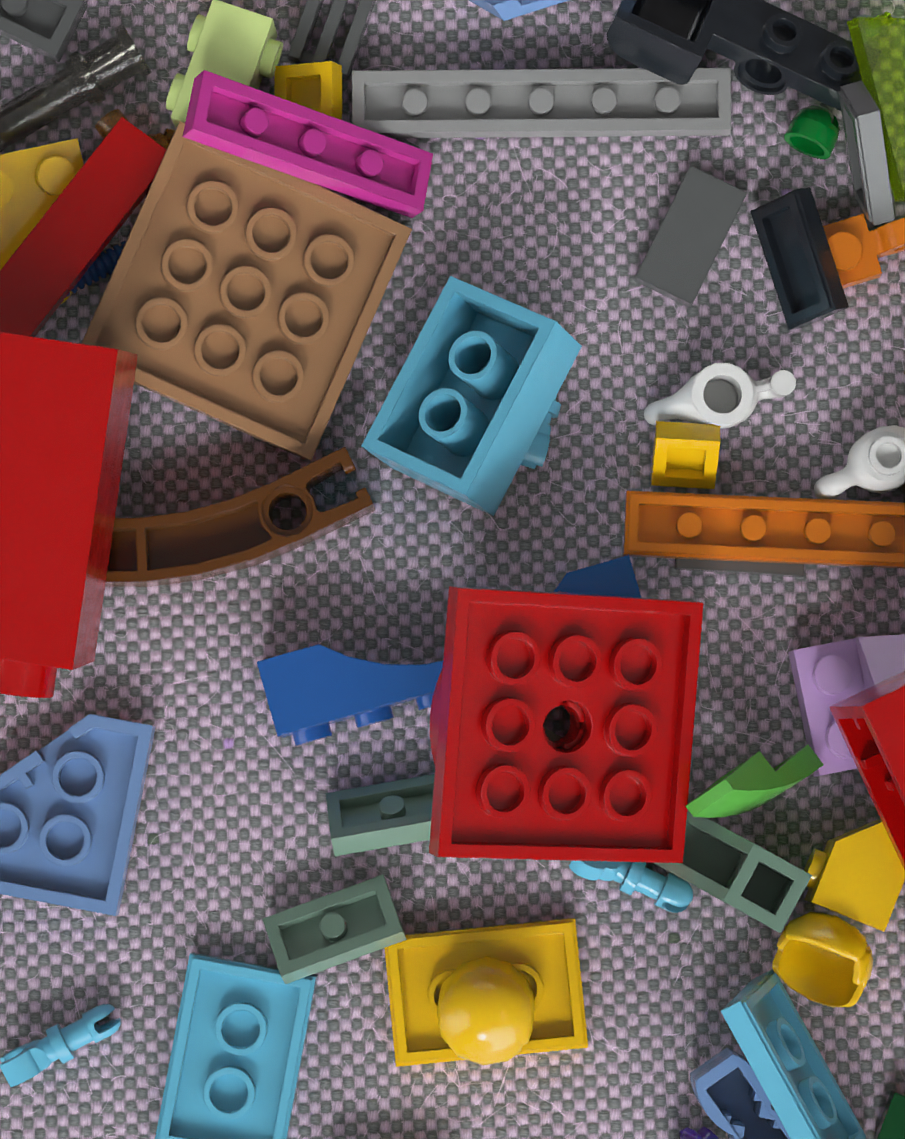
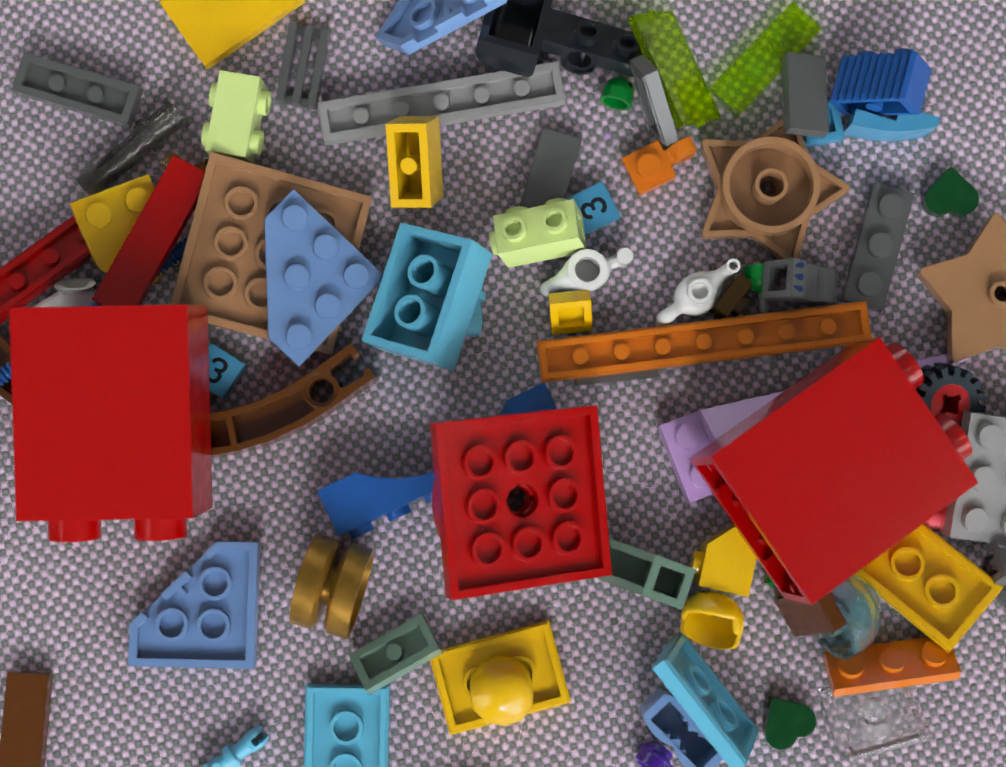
camera: 10 degrees left, 0 degrees up
(143, 458) = (223, 371): none -> dark azure tile
(250, 806) = (326, 583): none -> pearl gold wheel
(298, 337) = (310, 277): none -> medium blue plate
(307, 144) = (294, 153): dark pink plate -> none
(311, 85) = (292, 124): yellow plate -> none
(380, 815) = (411, 575): sand green plate -> none
(486, 186) = (414, 161): none -> yellow brick
(656, 326) = (538, 232): none -> yellowish green brick
(668, 891) = (605, 593): medium azure piece -> none
(746, 302) = (596, 208): none -> dark azure tile
(753, 784) = (648, 516): bright green slope -> none
(799, 258) = (622, 175): black tile -> none

